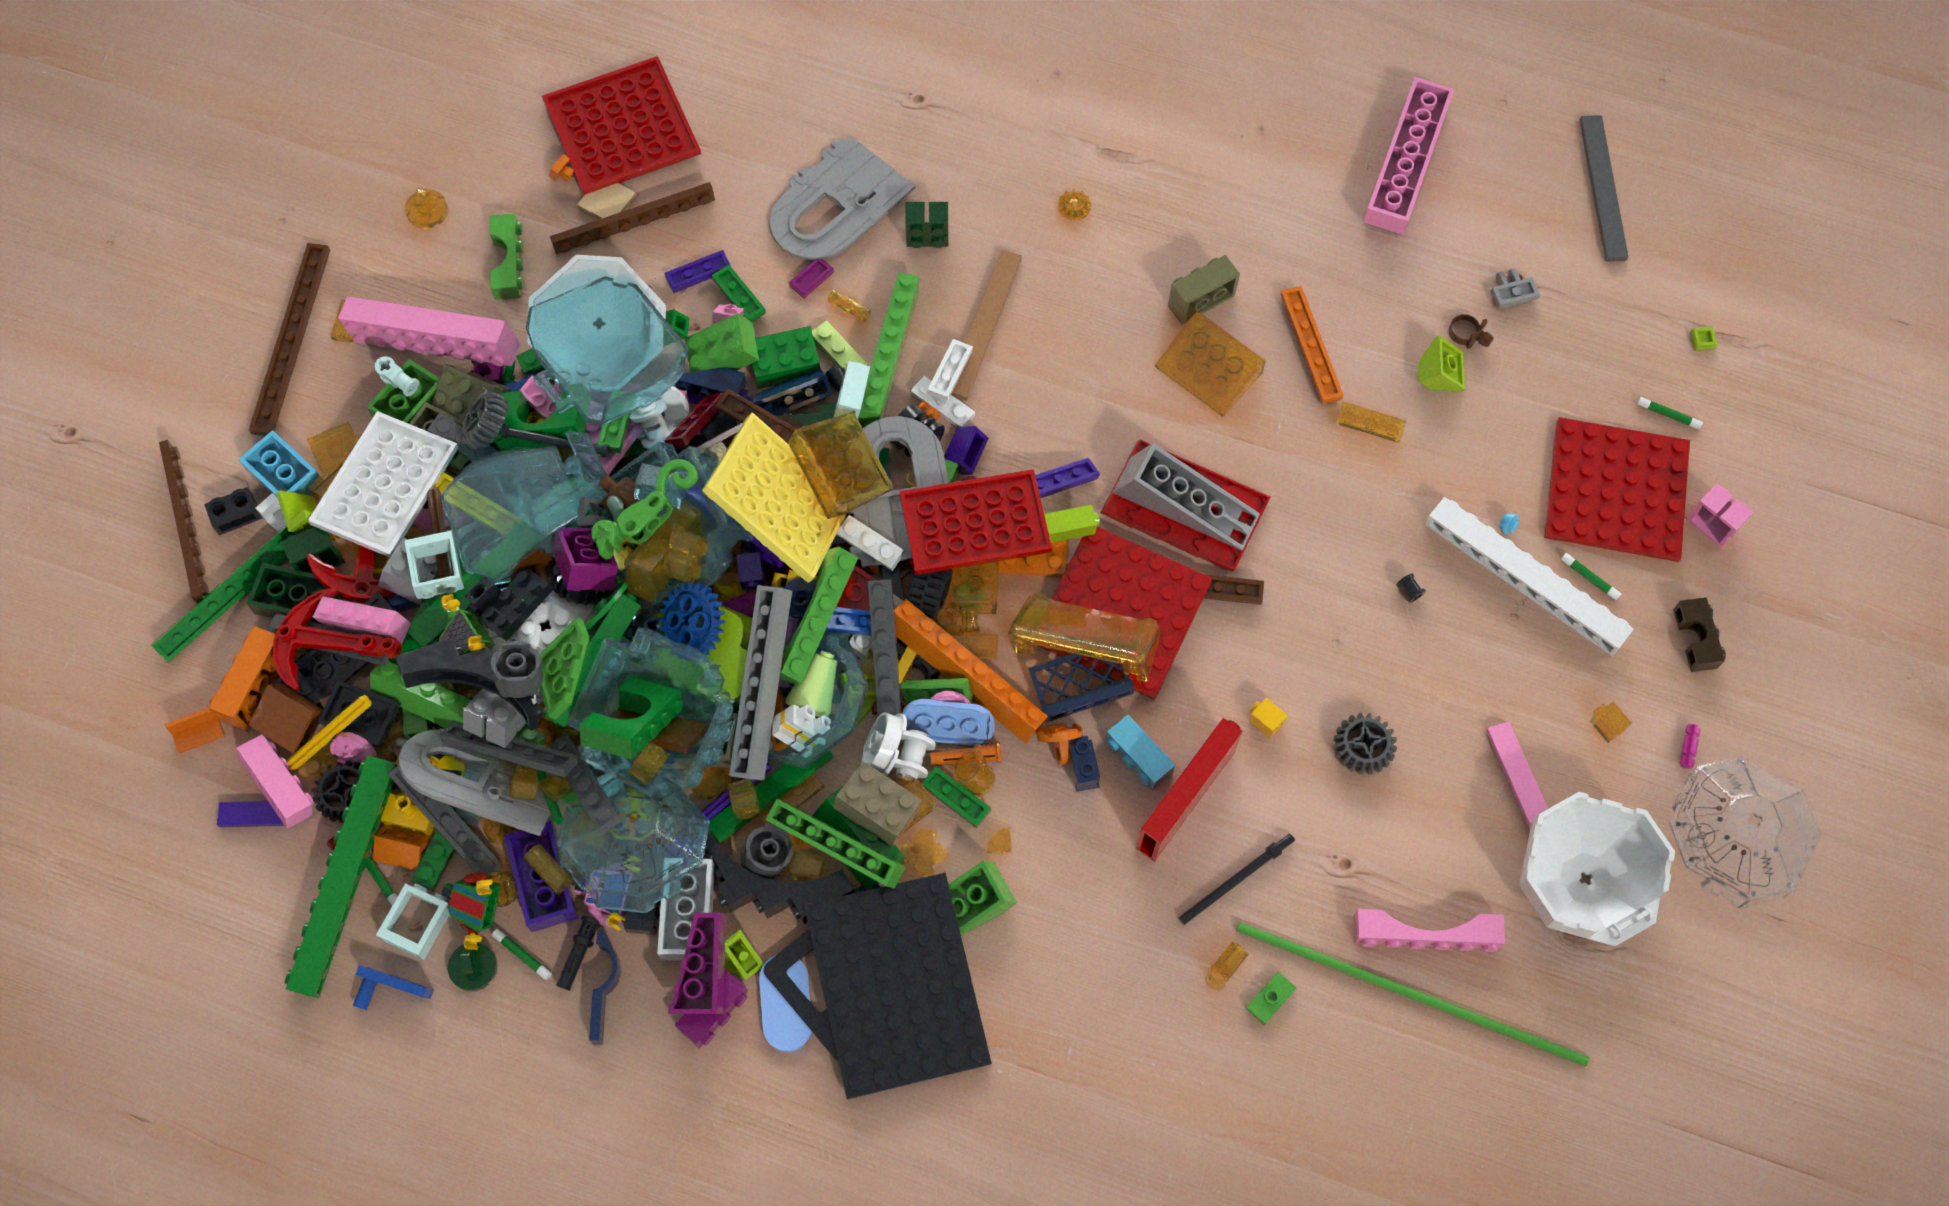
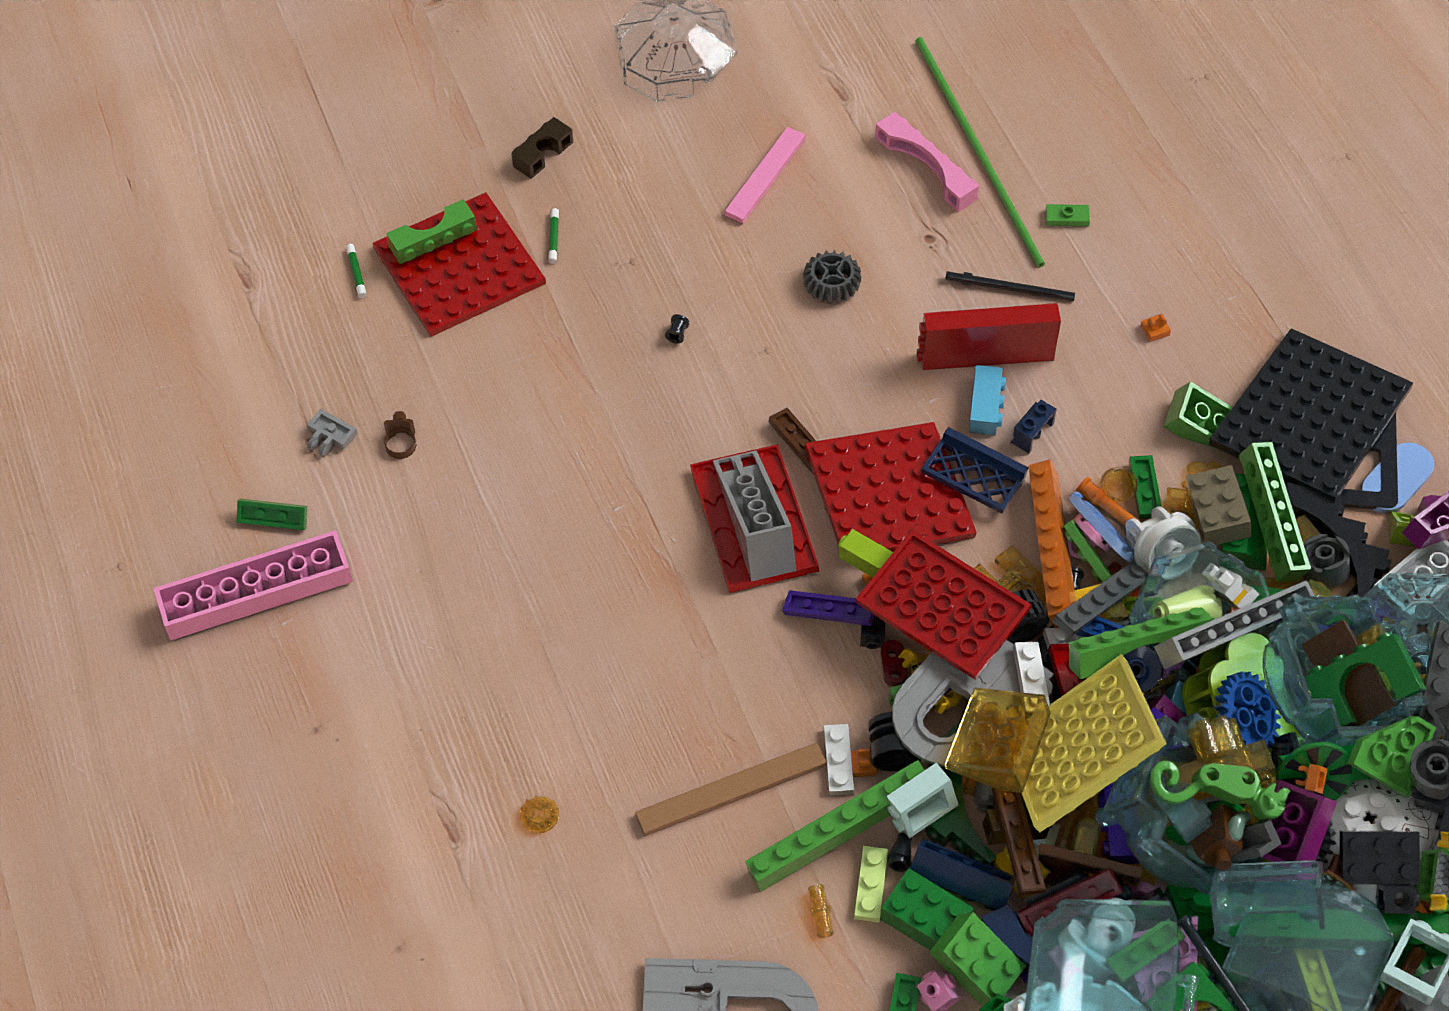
camera: 130 degrees left, 10 degrees down
(596, 588) = (1315, 778): none -> orange tile
(811, 277) = (823, 970): magenta tile -> none
(926, 233) = (683, 902): dark green piece -> none
(950, 370) = (809, 765): white plate -> none
(966, 448) = (865, 703): dark purple brick -> none
(1000, 841) = (1143, 437): clear yellow tile -> none
(1060, 736) = (1030, 447): orange tile -> none
(1086, 633) = (949, 479): clear yellow windscreen -> none
(1093, 956) = (1155, 327): none -> orange tile
(1203, 289) = (544, 635): olive brick -> none
(1211, 364) = (608, 588): clear yellow slope -> none
(1226, 965) = (1085, 248): clear yellow piece -> none
(1267, 717) = (875, 343): yellow brick -> none
(1311, 345) = (517, 533): orange plate -> none
(1371, 422) = (554, 445): clear yellow plate -> none
(1442, 367) = (459, 427): lime slope -> none
(1466, 207) = (271, 514): none -> green plate
(1509, 523) = (559, 304): medium azure plate -> none
(1529, 576) = (594, 269): white brick -> none
(1603, 188) = (158, 438): dark grey tile -> none
(1610, 721) = (665, 156): clear yellow brick -> none
(1615, 847) = (776, 78): white windscreen -> none
(1657, 501) = (411, 243): none -> bright green arch
(1690, 746) = (636, 108): dark pink axle -> none
(1703, 338) = (261, 289): lime tile -> none
(1719, 515) = (431, 182): bright pink piece -> none

